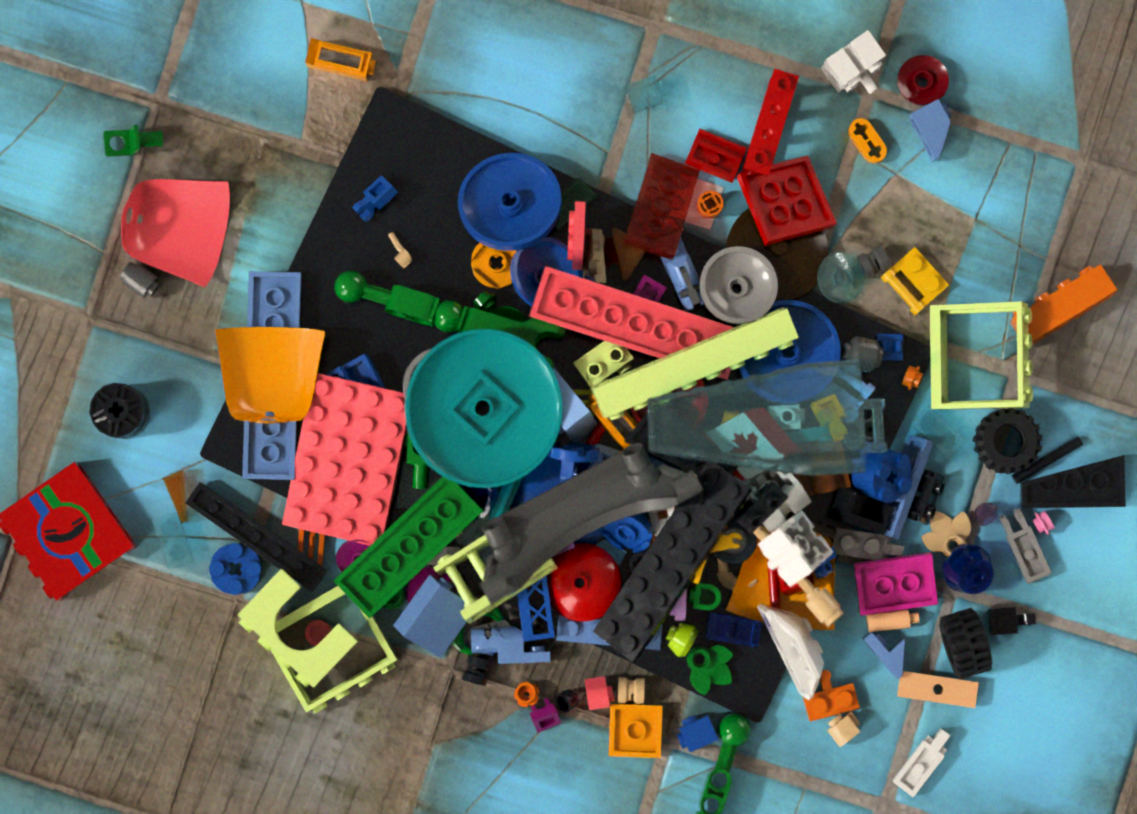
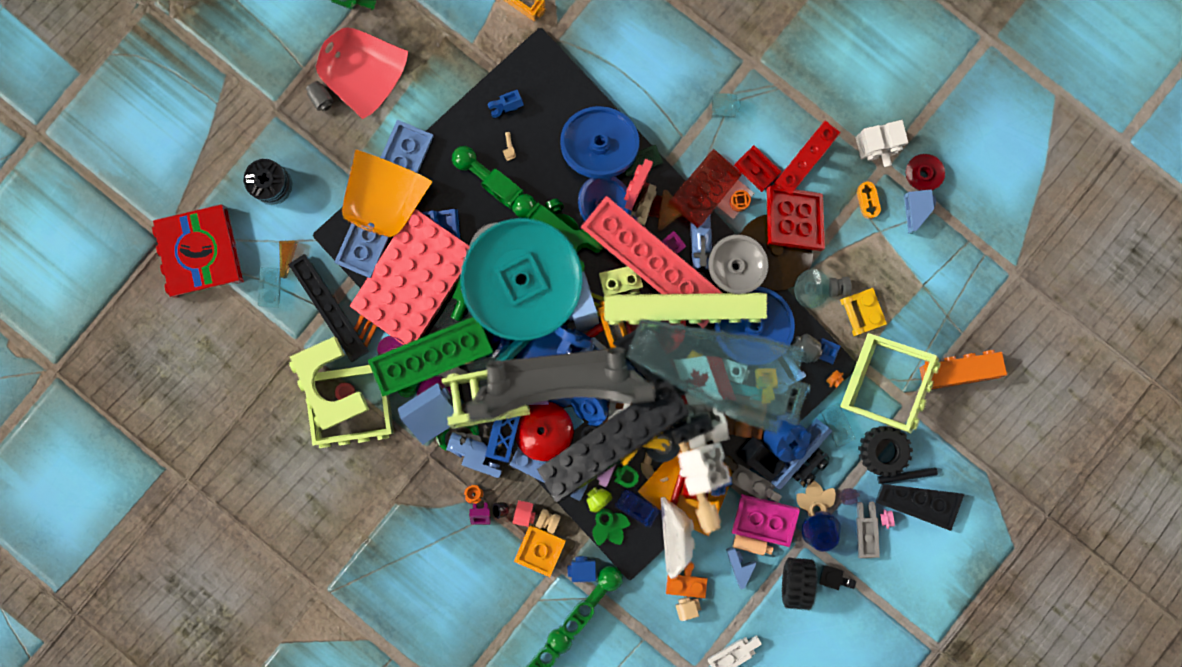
camera: 25 degrees right, 0 degrees up
(221, 569) = (294, 323): blue plate -> none
(476, 676) = (441, 466): black wheel -> none
(482, 270) = (561, 182): light orange plate -> none
(952, 692) = (775, 613): light nougat tile -> none

